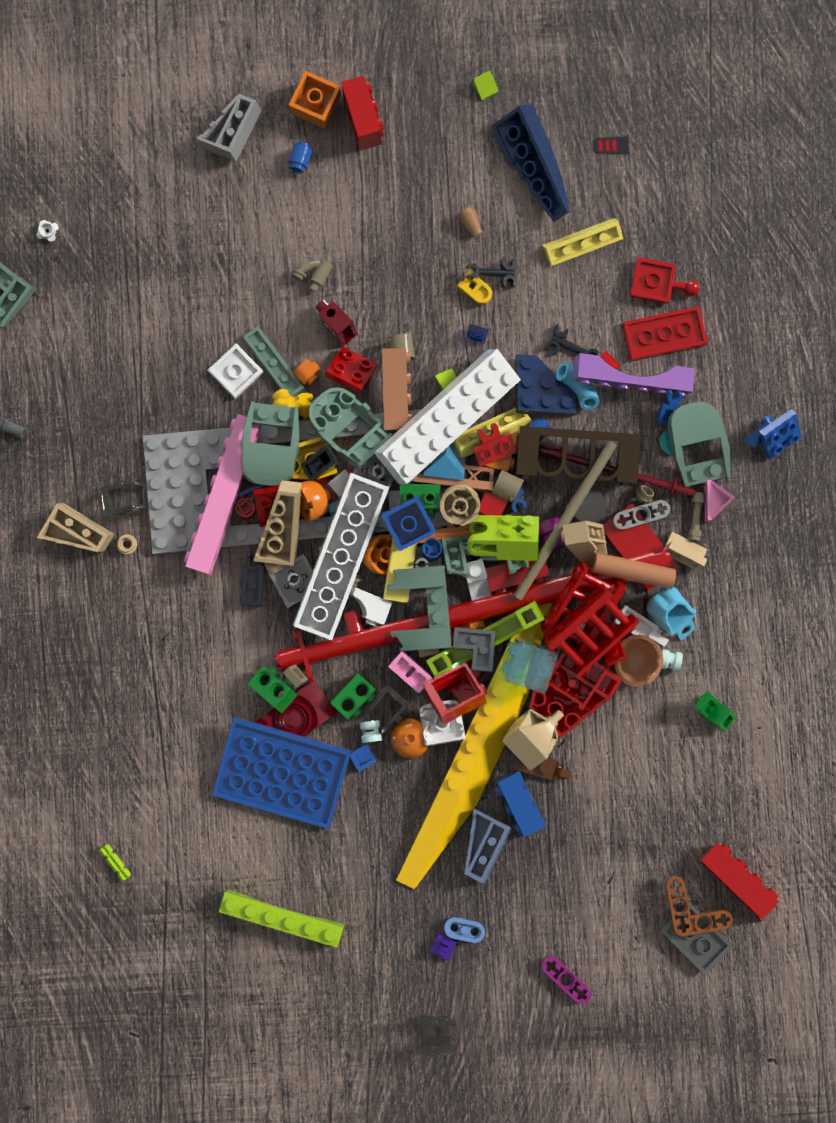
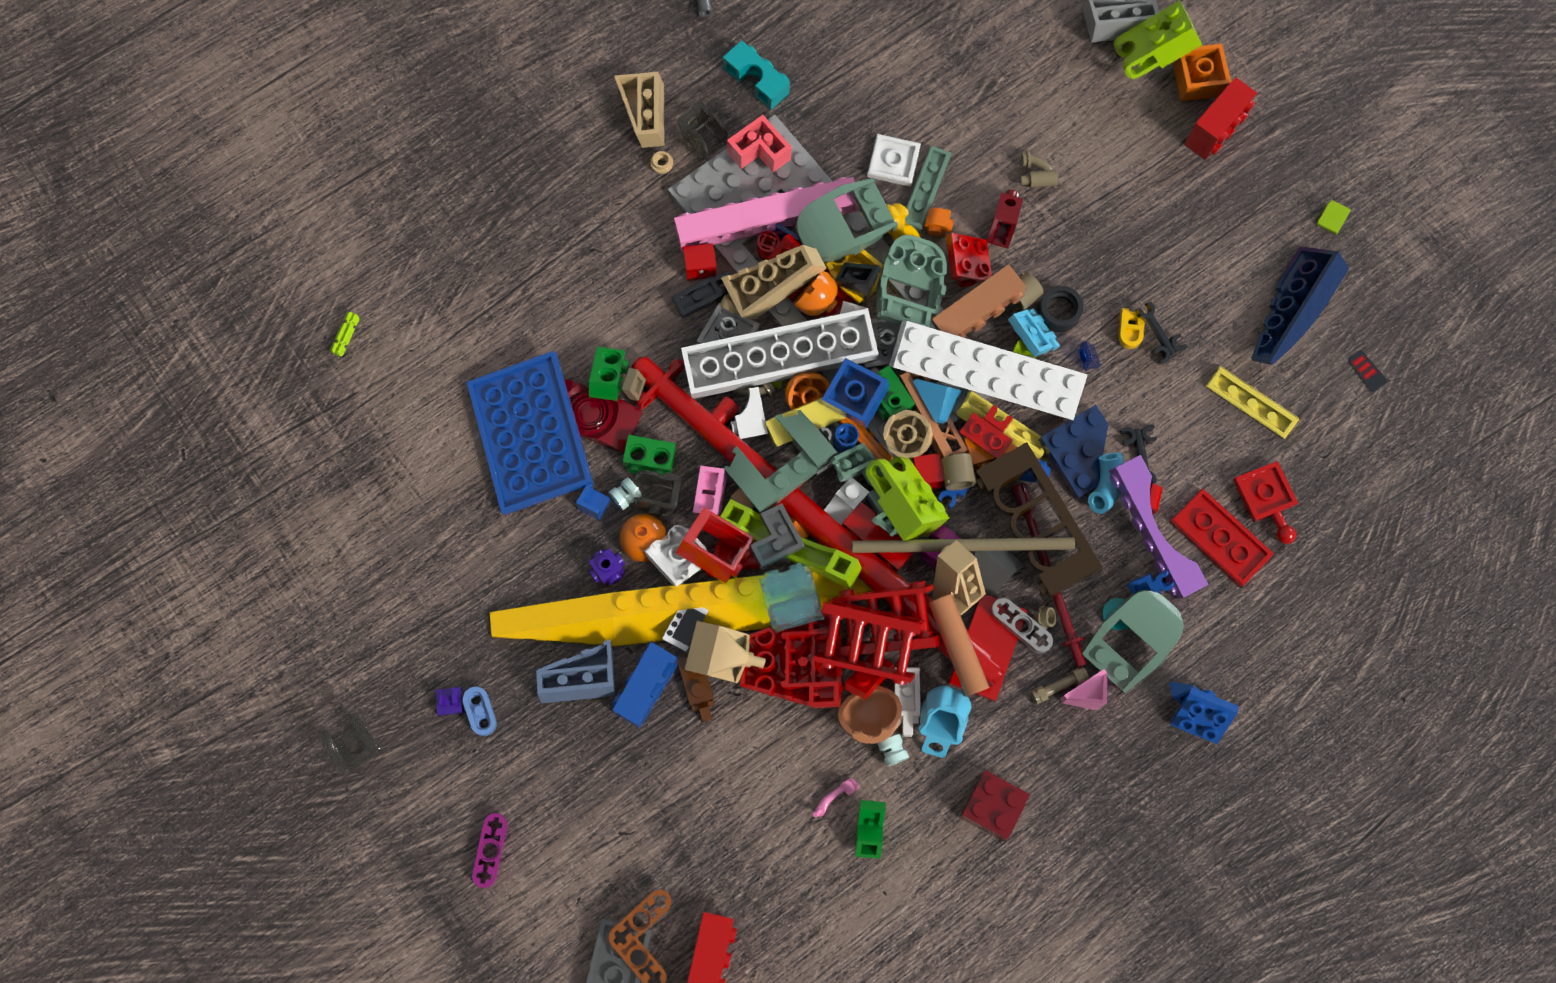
camera: 55 degrees right, 10 degrees down
(84, 430) = (745, 61): none -> teal arch
(161, 464) = (761, 141): none -> coral brick
(227, 567) = (699, 261): none -> red piece
(272, 115) = (1157, 41): none -> lime brick
(278, 918) = (381, 521): lime arch -> none
(300, 157) = (1137, 93): blue brick -> none
(417, 769) = (608, 575): none -> dark purple brick
(426, 314) = (1068, 294): none -> black tyre
(436, 361) = (1034, 332): none -> medium azure plate
(470, 221) = (1193, 281): medium nougat cone -> none
(497, 750) = (683, 626): none -> black sticker
(674, 706) = (848, 787): none -> bright pink piece
(686, 551) = (1016, 695): tan panel -> none
(750, 617) = (994, 806): none -> dark red brick

